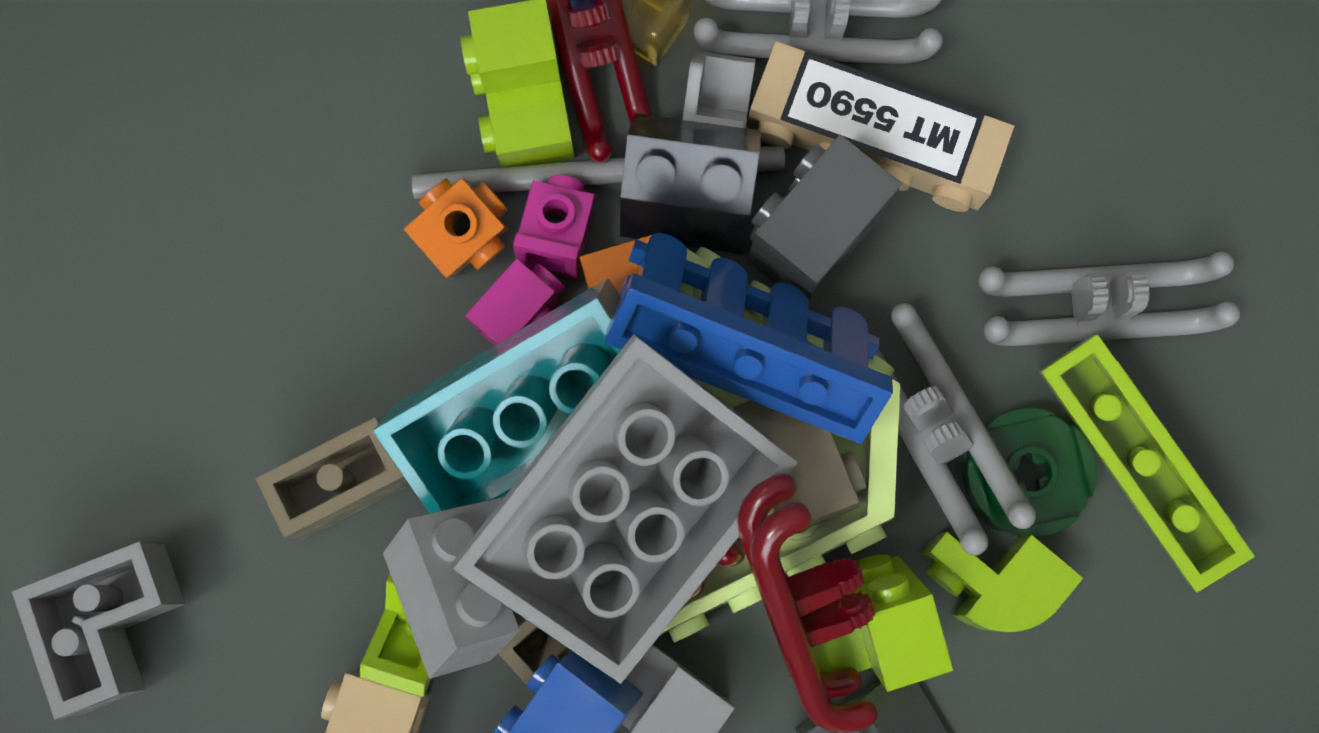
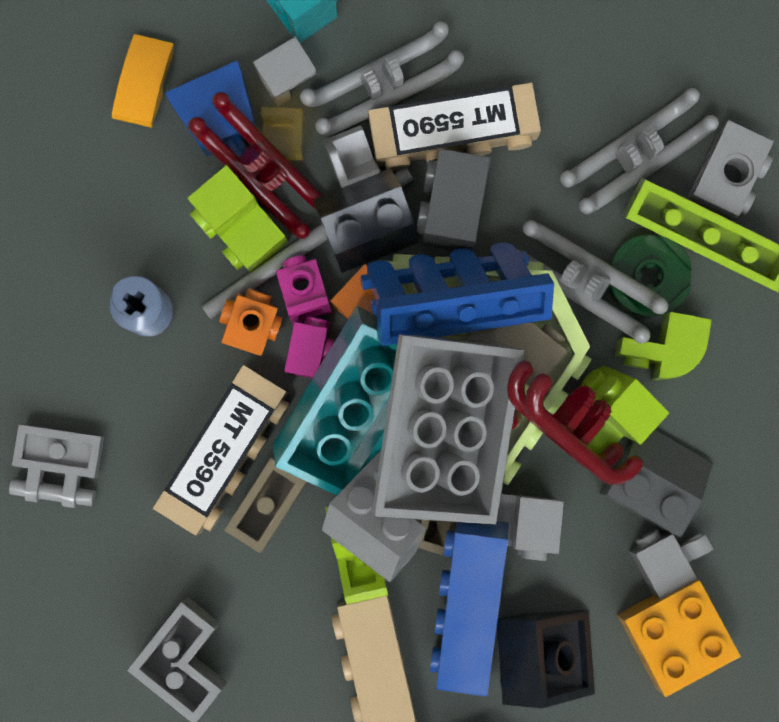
camera: 30 degrees left, 5 degrees up
(111, 254) = (56, 452): none -> light grey plate
(321, 376) = (221, 451): none -> brick
(328, 123) = (124, 305): none -> sand blue piece
(1248, 373) = (746, 152): none -> light grey brick

